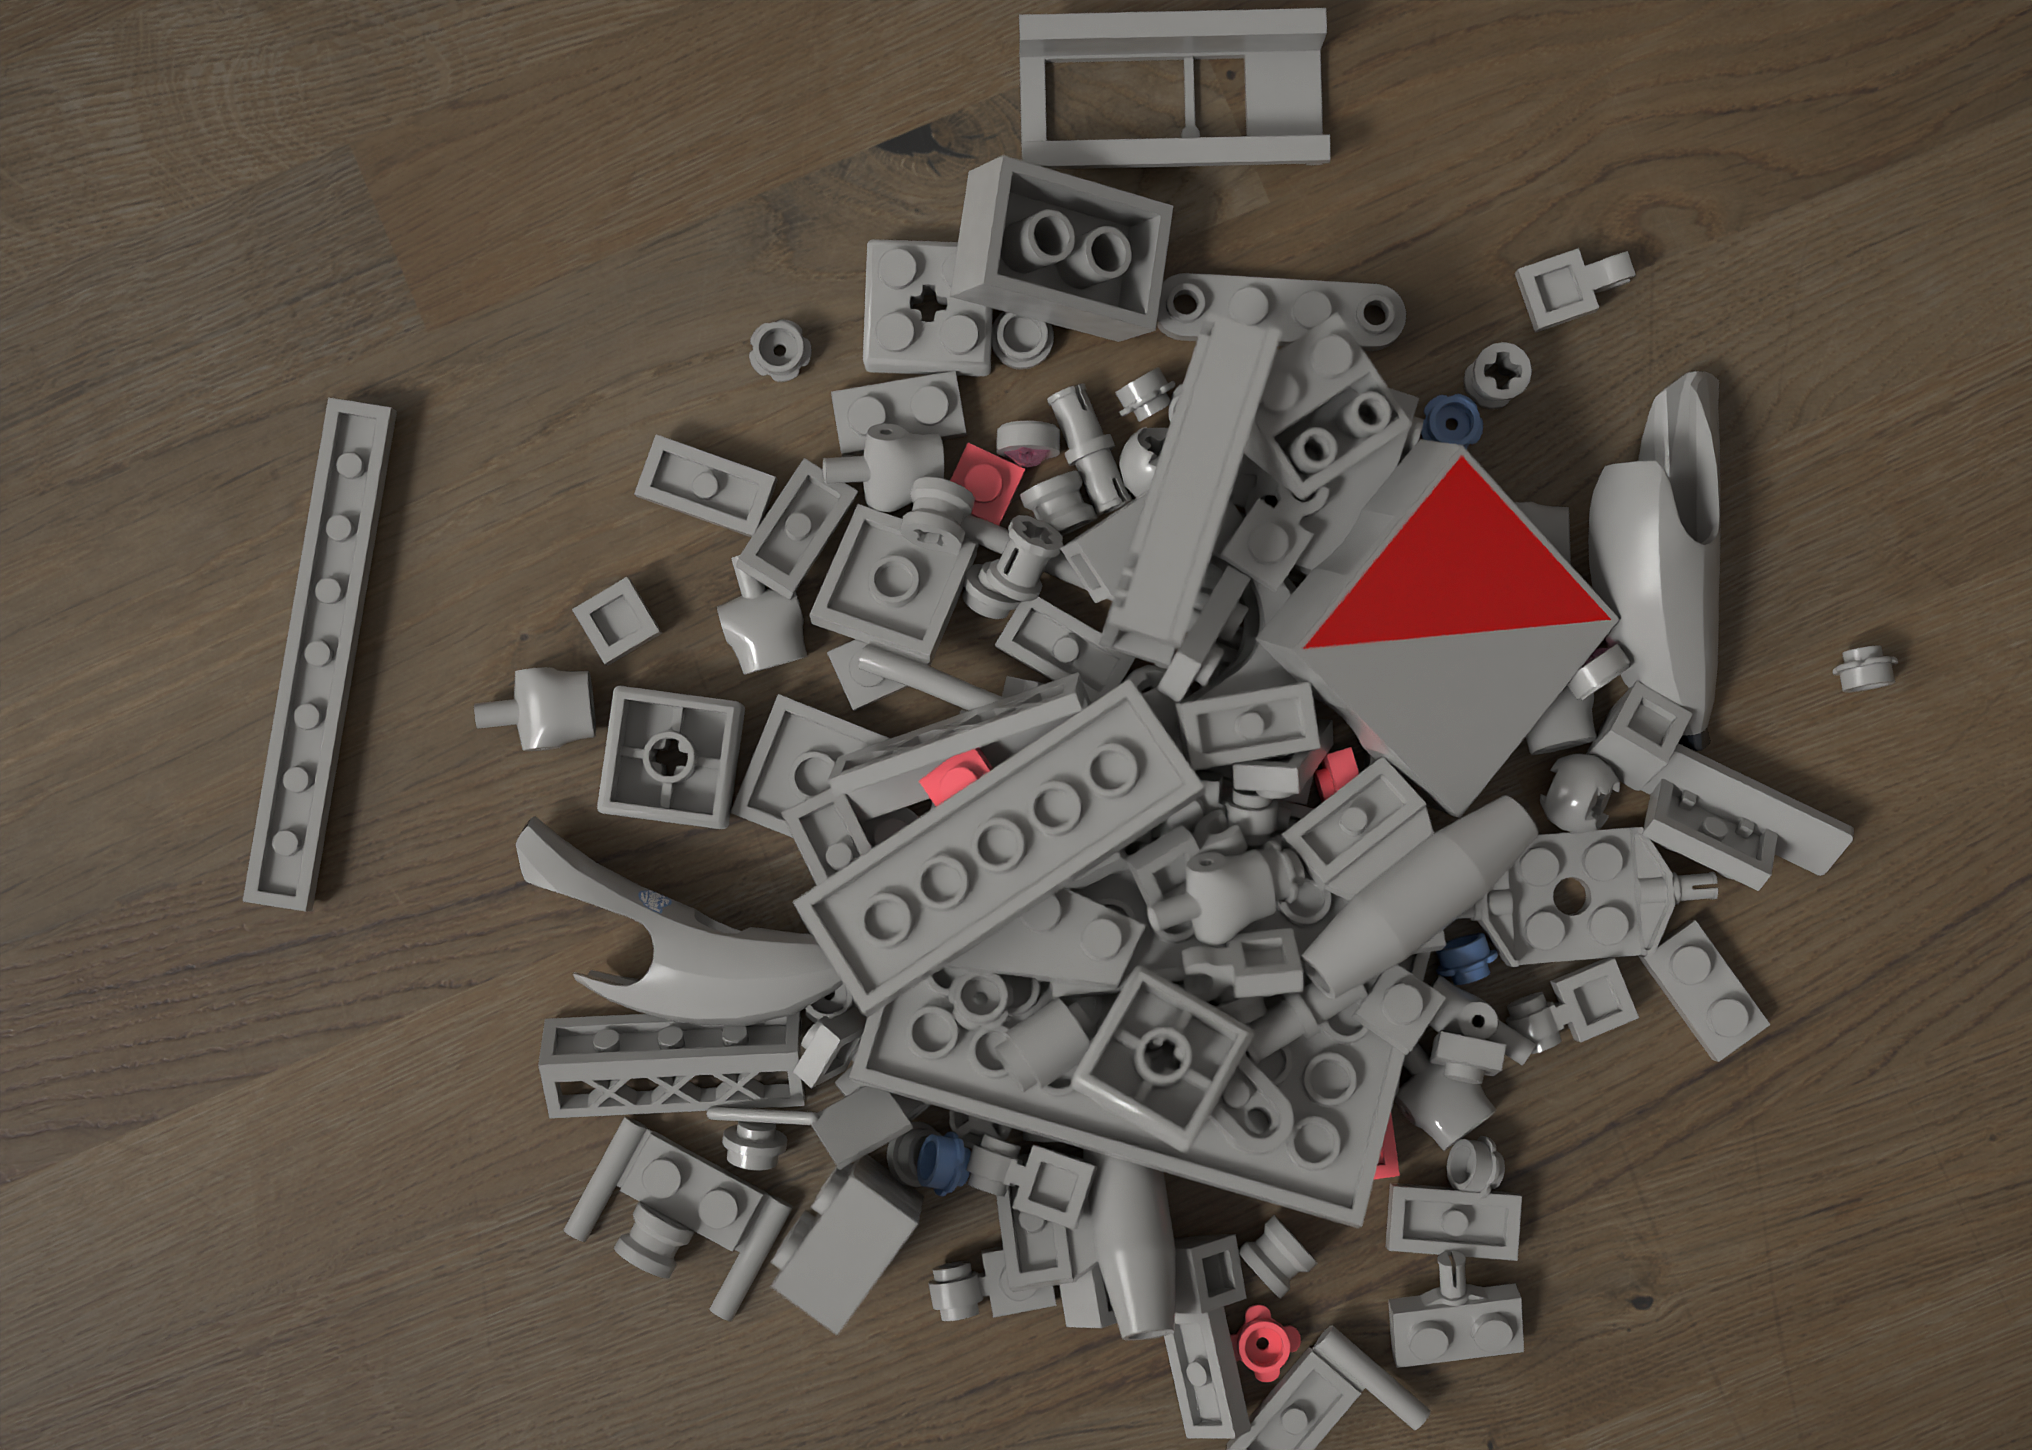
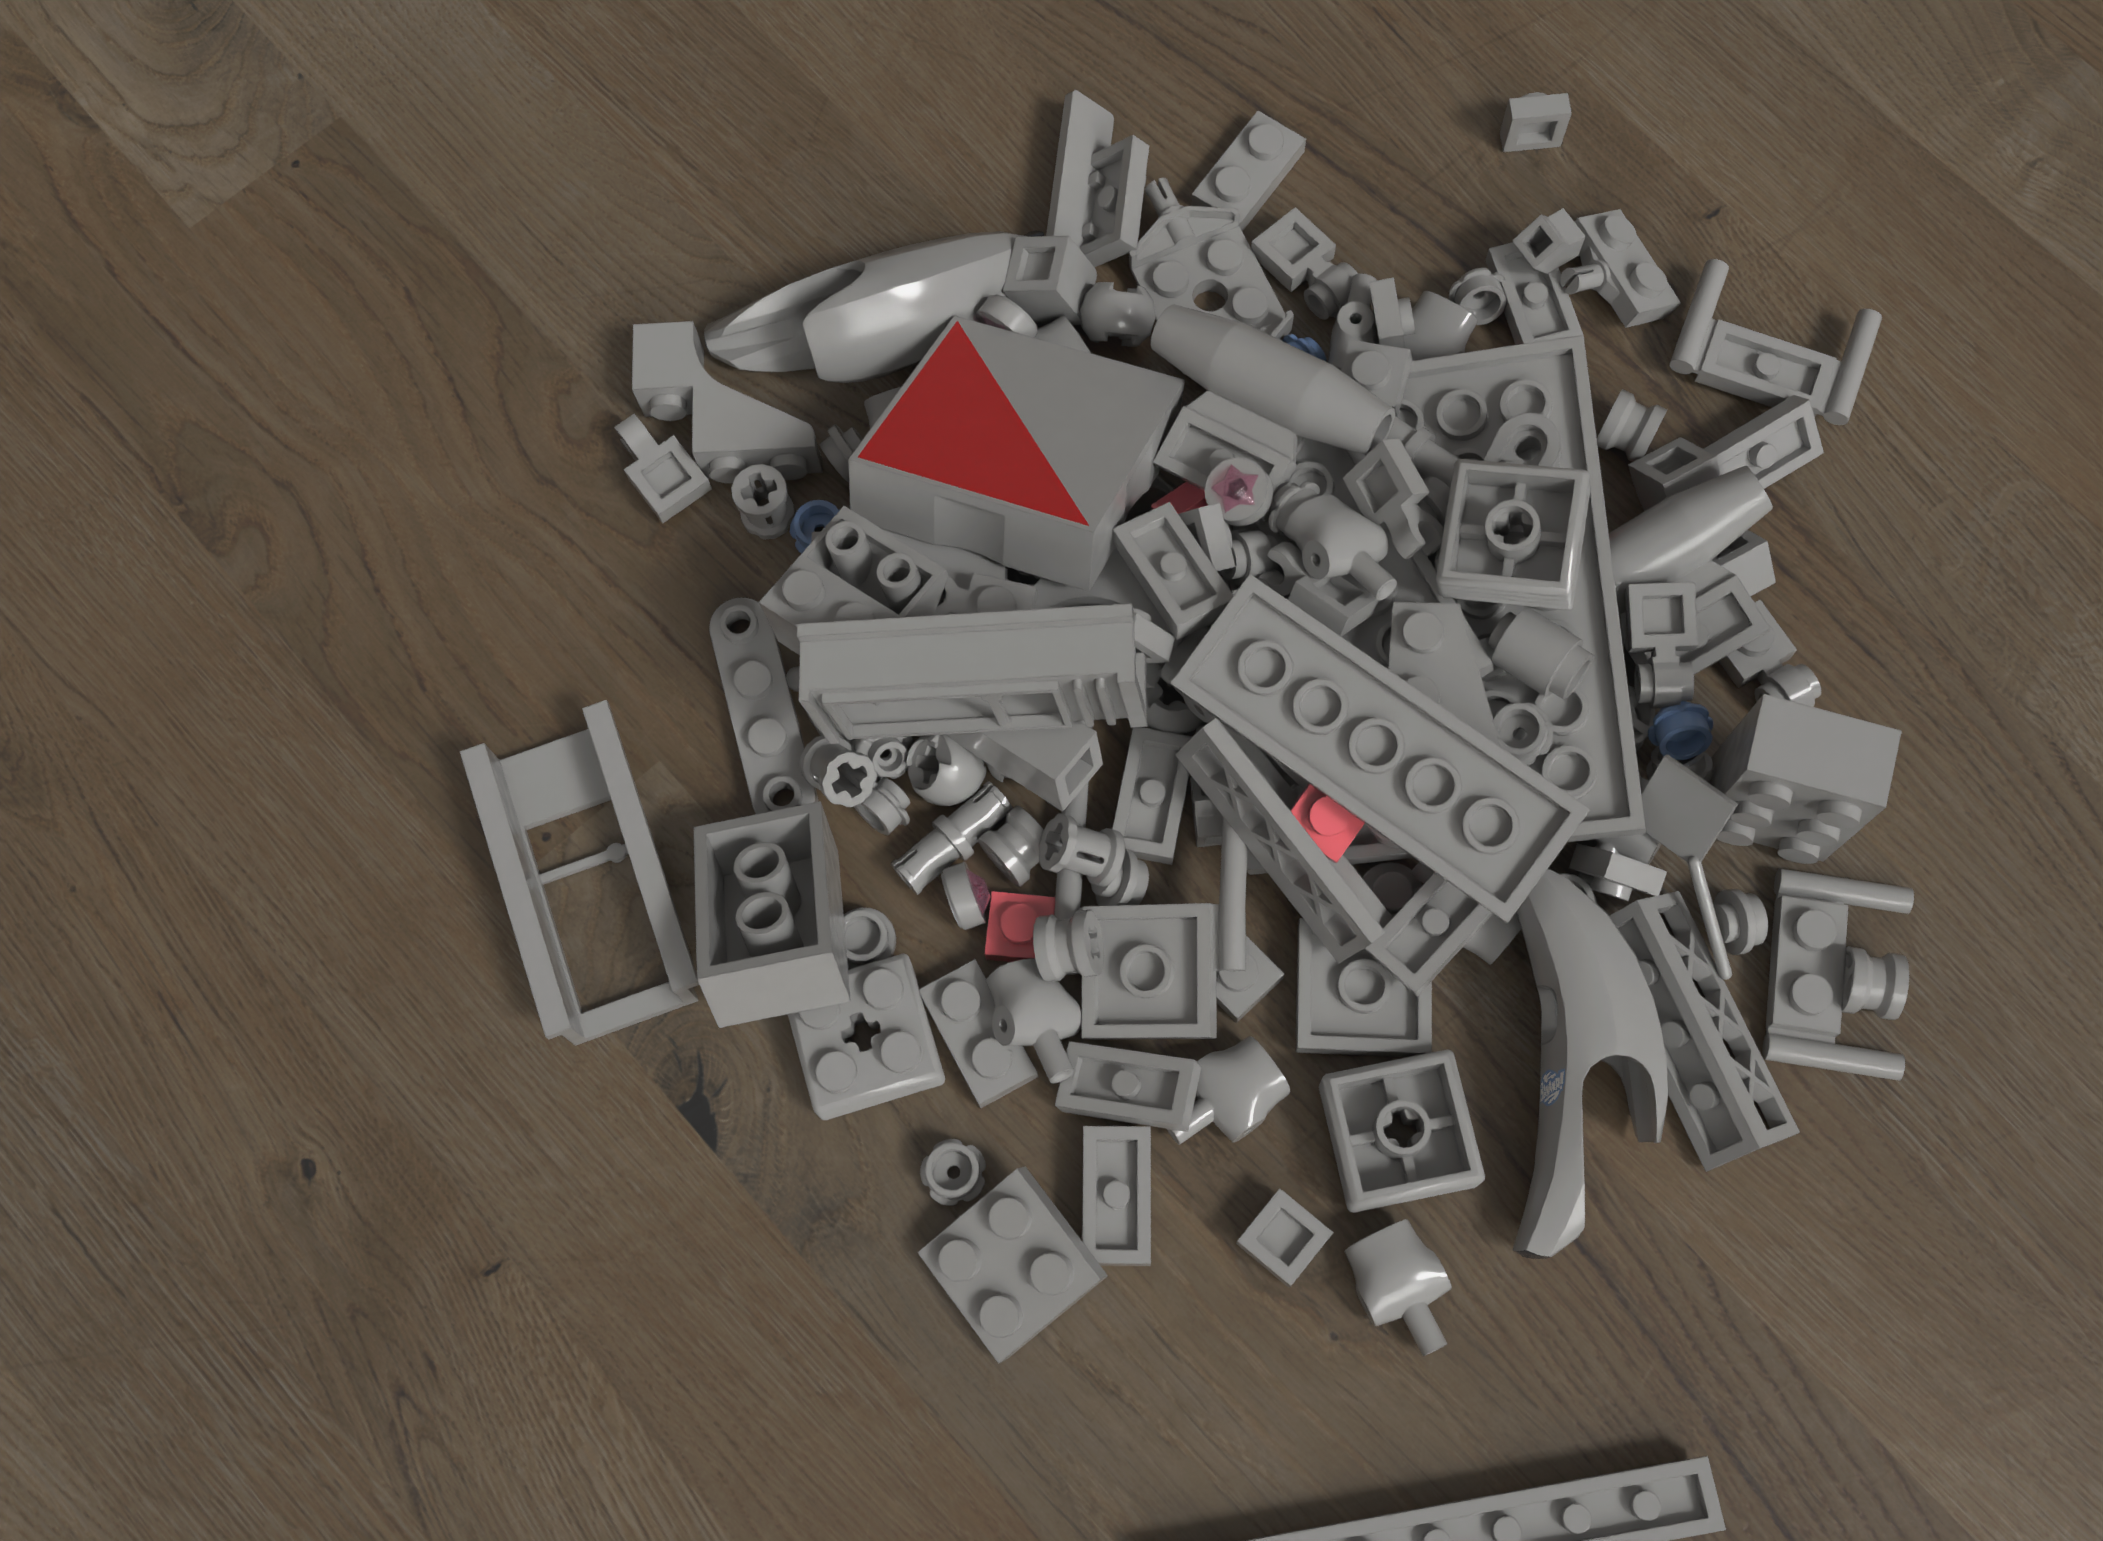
camera: 100 degrees left, 15 degrees down
(677, 373) = (1012, 1264): none -> light grey plate
(1169, 359) = (838, 771): none -> light grey bush
(1281, 1341) = (1713, 402): coral plate -> none
(1311, 821) = (1240, 489): none -> light grey tile
(1499, 1252) = (1550, 241): none -> light grey piece
(1523, 474) = (840, 447): none -> light grey plate
(1586, 361) = (727, 426): none -> light grey arch
(1654, 1305) = (1535, 122): none -> light grey plate
(1865, 669) = (924, 133): light grey plate -> none

